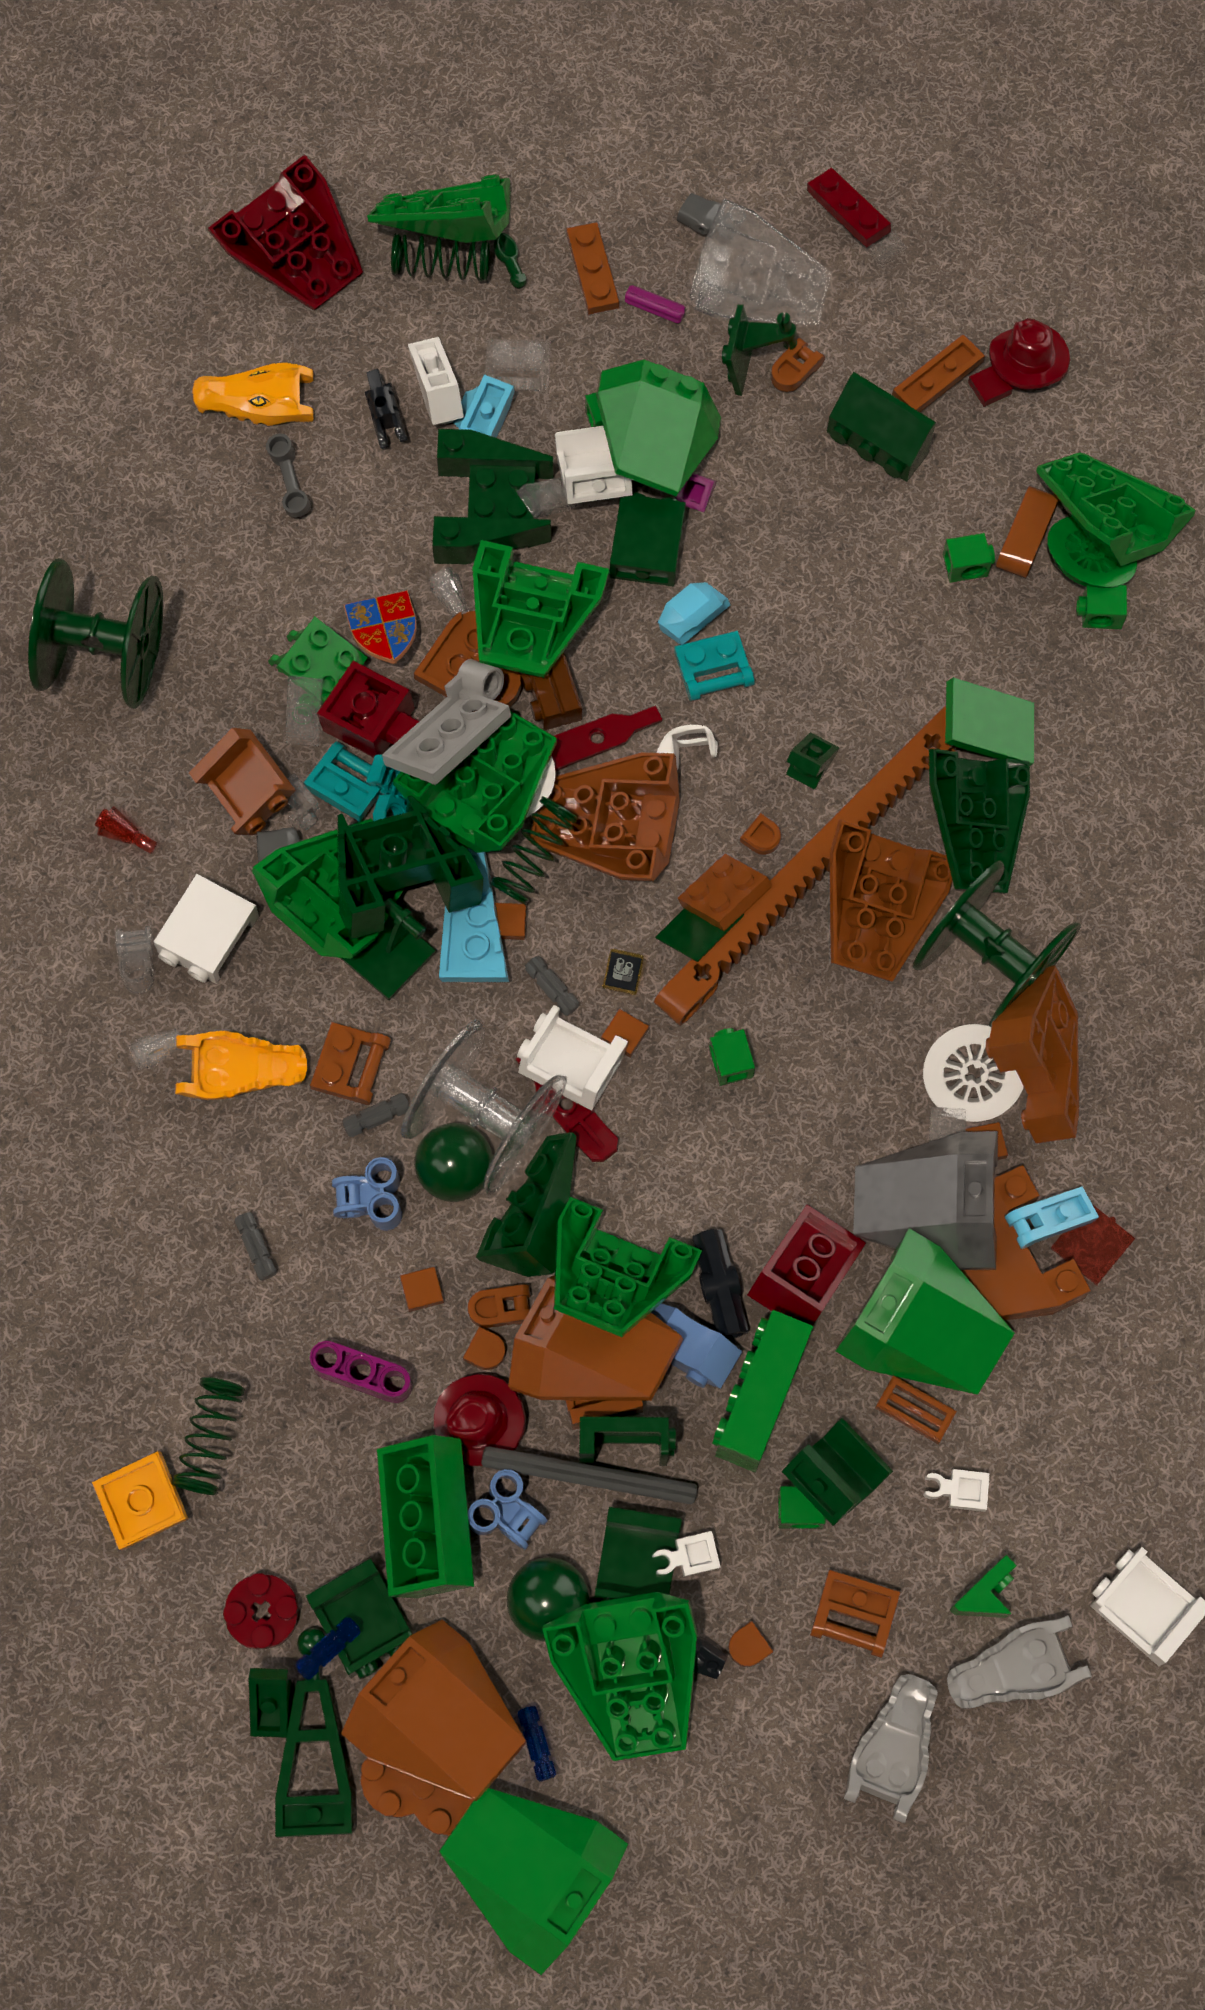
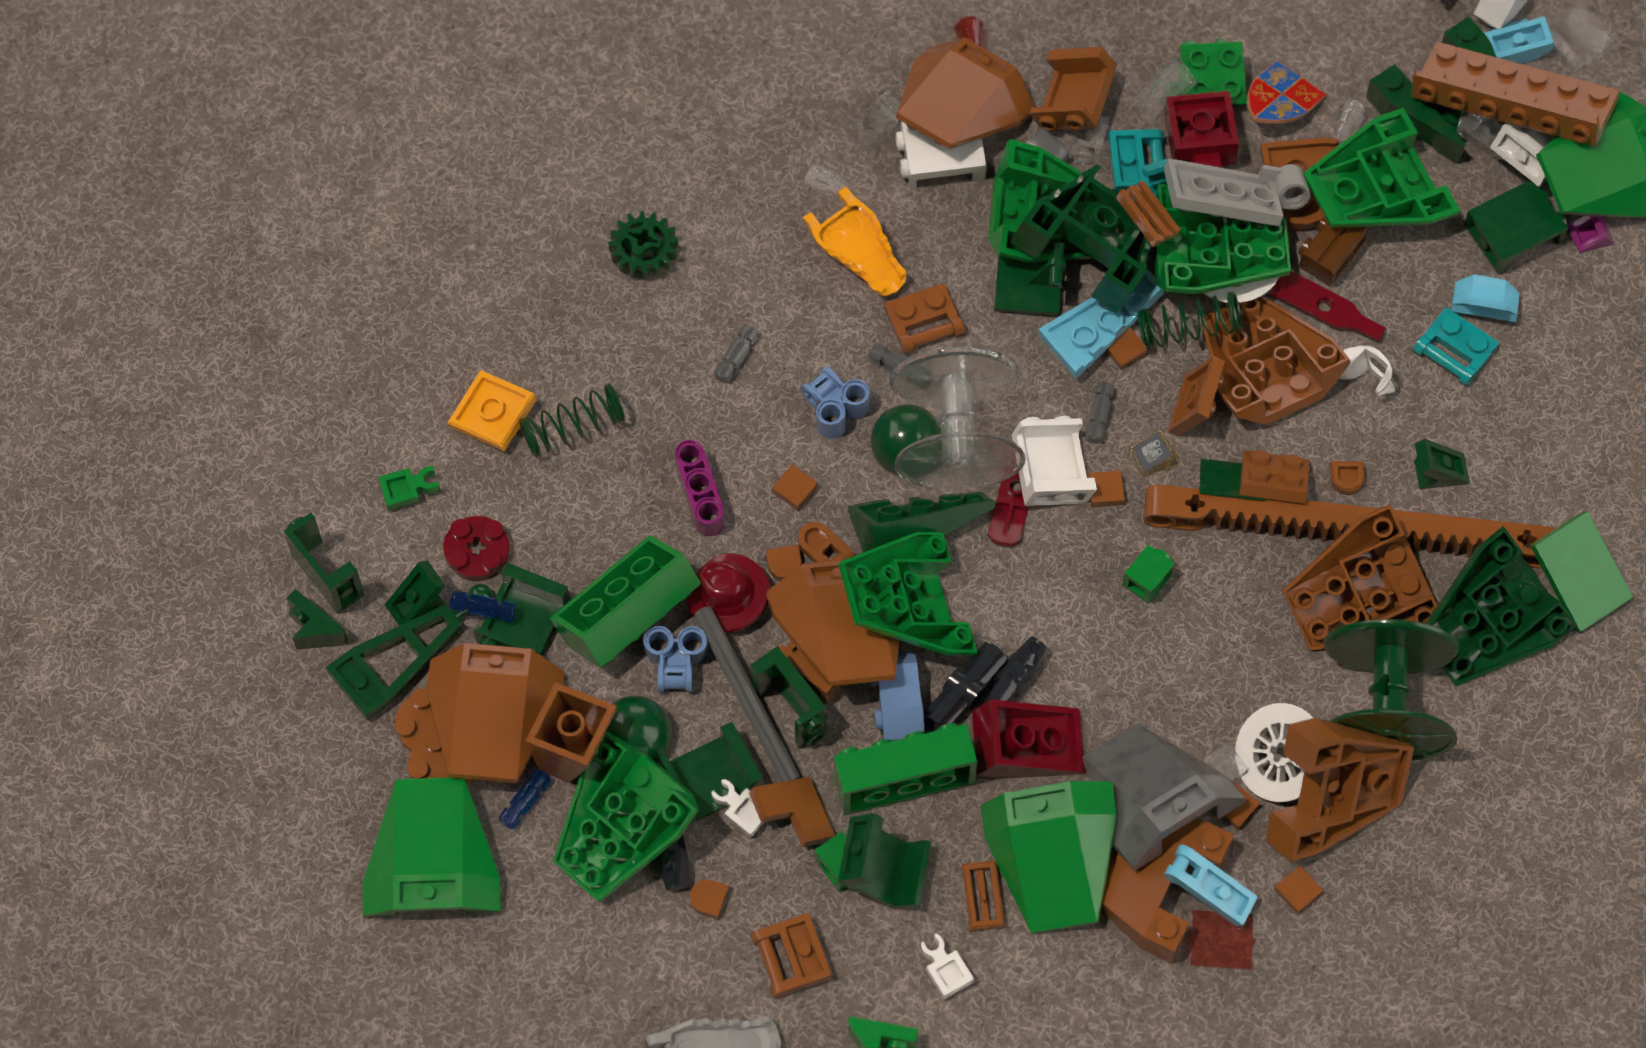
camera: 55 degrees right, 5 degrees down
(75, 1255) = (646, 249): none -> dark green gear
(151, 1638) = (402, 488): none -> green plate
(171, 875) = (963, 94): none -> dark orange wedge
(213, 1770) = (340, 587): none -> dark green panel
(232, 1813) = (317, 629): none -> dark green slope
(417, 804) = (1151, 212): none -> dark orange tile
(525, 1657) = (568, 731): none -> dark orange slope
(545, 447) = (1515, 93): none -> dark orange bracket
(606, 897) = (1196, 396): none -> dark orange plate
(724, 1503) = (799, 802): none -> dark orange tile
(739, 1233) = (1017, 670): none -> black hinge
(1095, 1149) = (1298, 890): none -> dark orange tile

